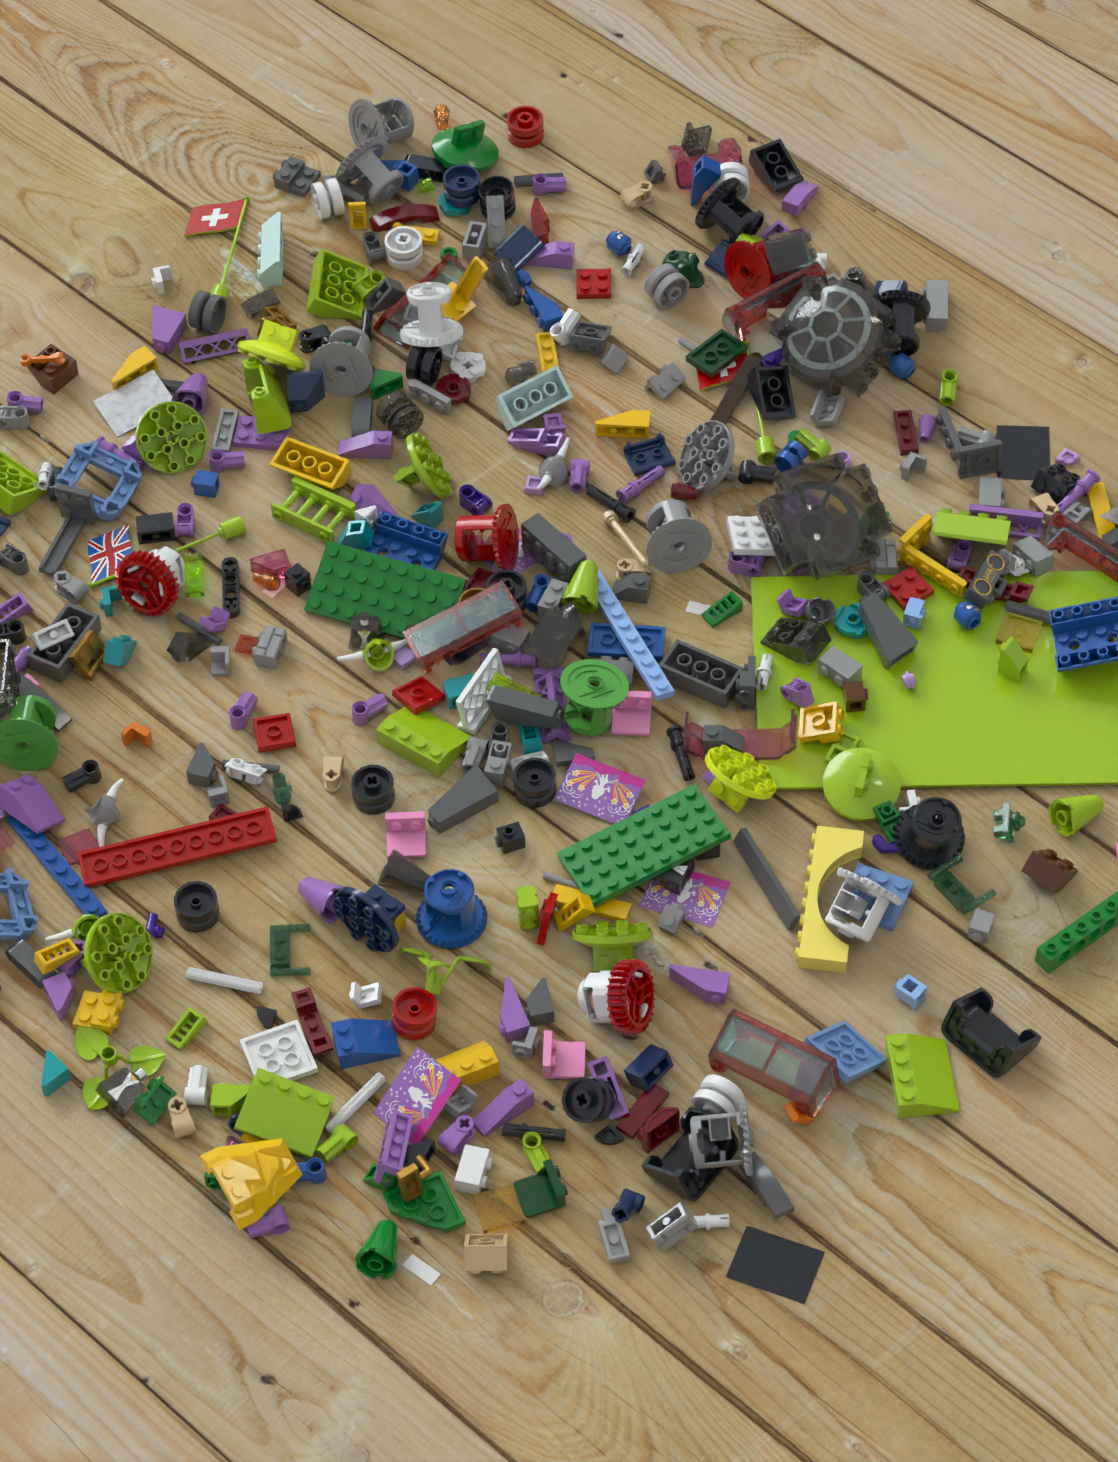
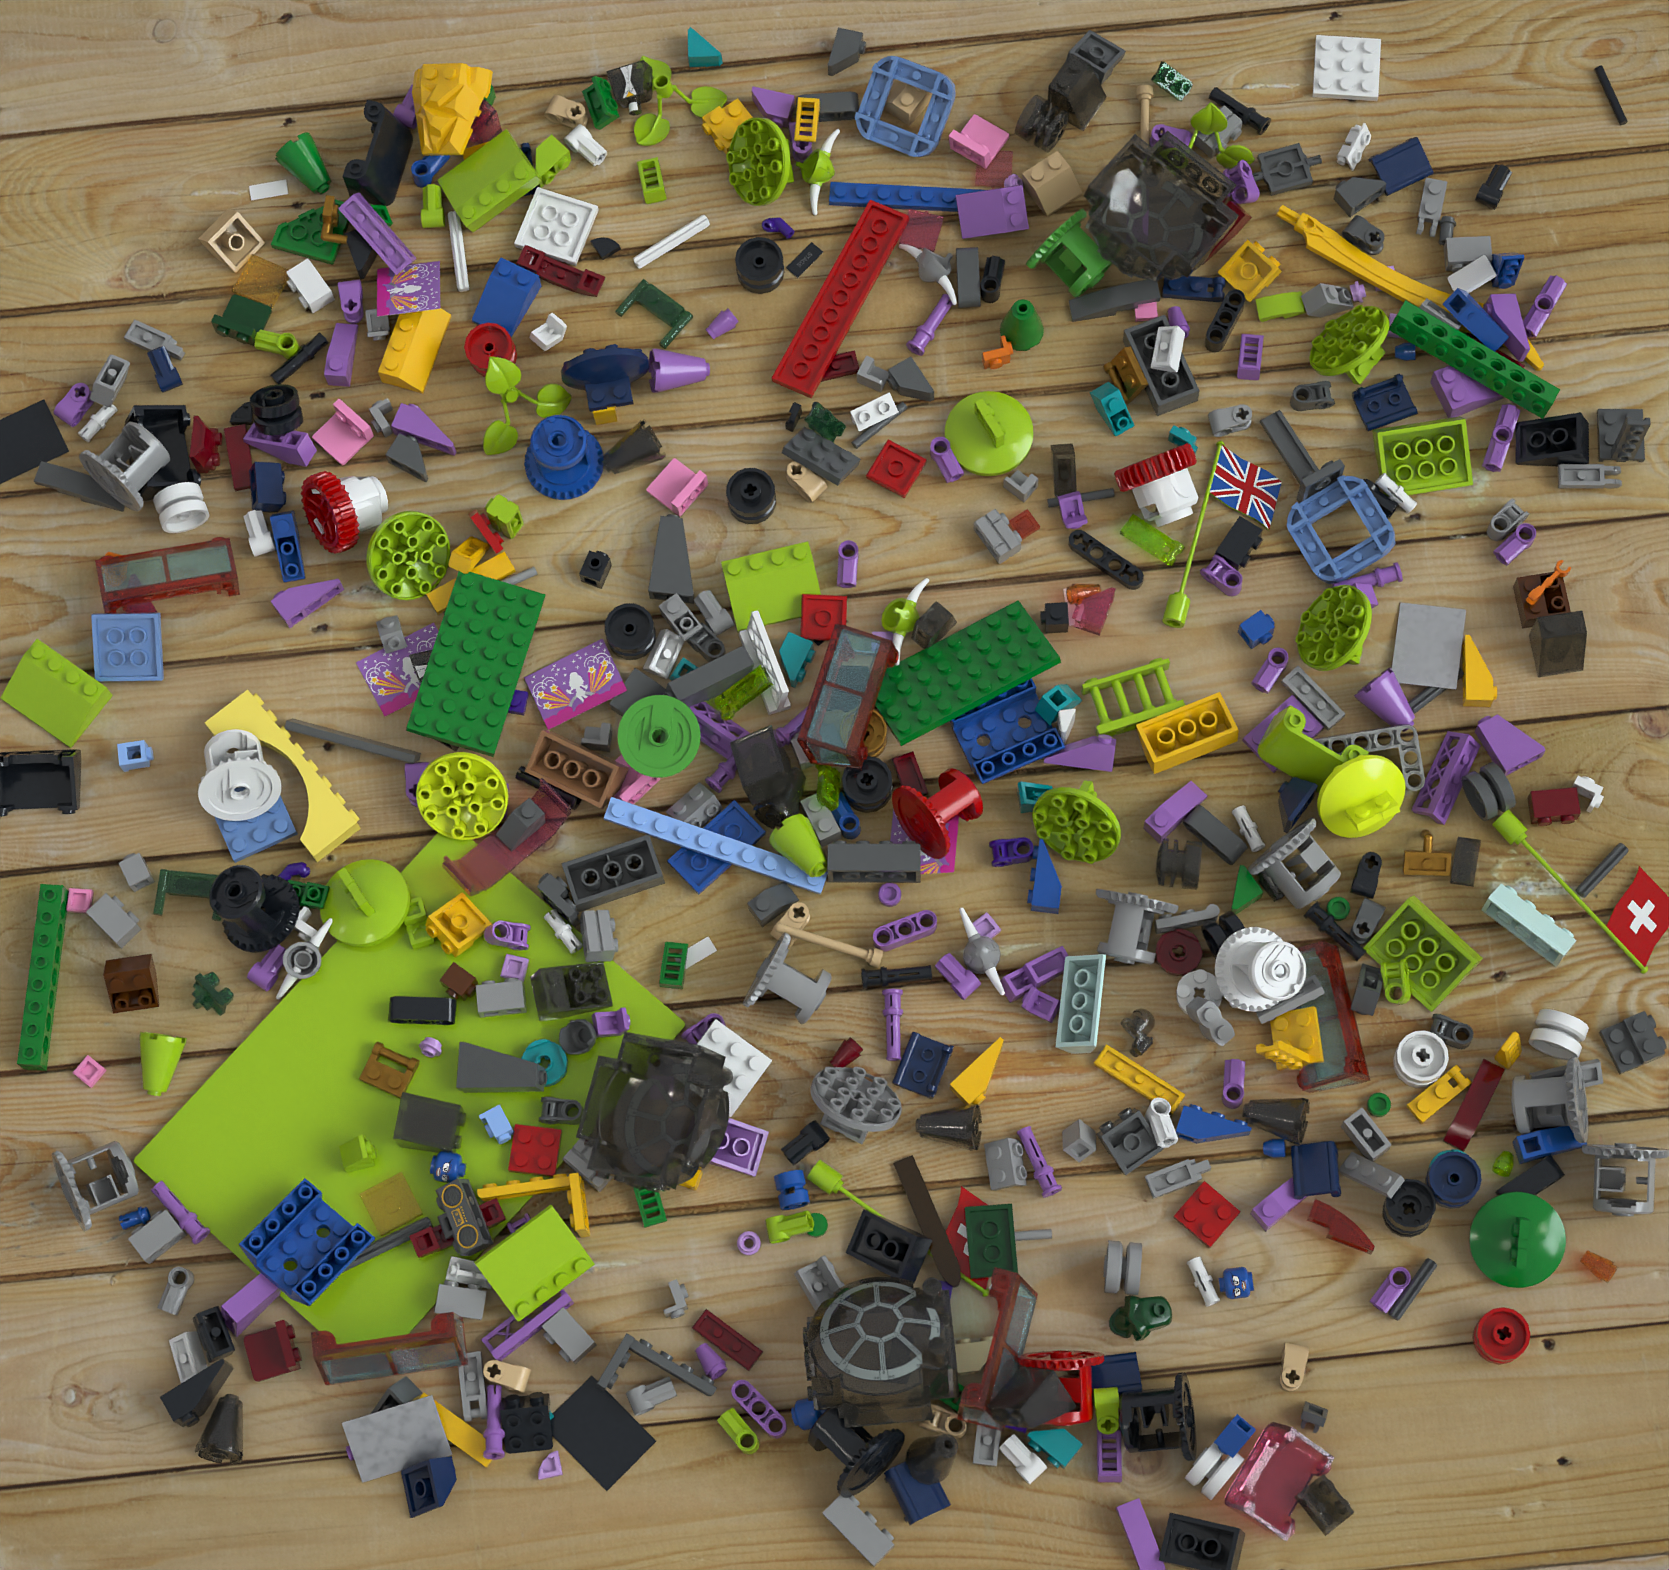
camera: 135 degrees right, 20 degrees up
(75, 340) = (1559, 643): none -> clear smoke slope
(91, 790) = (968, 277): none -> dark grey beam
(103, 733) = (1022, 326): none -> green cone
(158, 786) = (926, 331): none -> medium lavender pin
(161, 896) = (804, 259): none -> black sticker
(183, 286) = (1554, 806): none -> dark red brick
(199, 701) = (989, 433): none -> lime bracket
(203, 248) = (1602, 870): none -> dark grey axle
(217, 369) = (1396, 741): none -> light grey beam
(260, 901) = (722, 323): none -> medium lavender cone
(306, 772) = (821, 456): none -> dark grey plate
(336, 416) = (1248, 828): none -> white pin
(343, 318) = (1367, 919): none -> dark grey piece
(356, 1189) = (388, 153): none -> black windscreen
(459, 406) = (1131, 926): none -> light grey piece
(477, 472) = (1047, 887): none -> blue slope
(481, 341) = (1210, 1021): none -> light grey brick
(510, 314) = (1233, 1081): none -> medium lavender piece
(537, 593) = (828, 786): none -> clear neon green plate
(578, 515) = (897, 939): none -> medium lavender beam
(587, 306) = (1176, 1177): none -> light grey hinge
(622, 752) = (598, 738): none -> light grey panel
(650, 362) = (1043, 1172): none -> medium lavender pin
(655, 738) = (576, 769): none -> medium nougat slope
(669, 410) = (952, 1126): none -> clear smoke cone
(673, 1026) = (288, 545): none -> blue slope
(687, 1045) = (260, 538): none -> white piece
(712, 1243) = (73, 405): none -> medium lavender piece
(749, 645) = (598, 936): none -> light grey brick
(756, 820) = (412, 775): none -> medium lavender piece
(815, 679) = (514, 967): none -> lavender tile
(892, 701) = (422, 1010): none -> black beam
(926, 388) = (754, 1398): none -> medium lavender beam
(931, 783) = (303, 959): none -> light grey helmet
(951, 691) = (385, 1077): none -> pearl gold plate
(956, 642) = (428, 1124): none -> clear smoke slope
(965, 804) = (266, 972): none -> medium lavender piece
(1024, 912) = (114, 920): none -> light grey brick
(1030, 946) = (79, 900): none -> bright pink tile

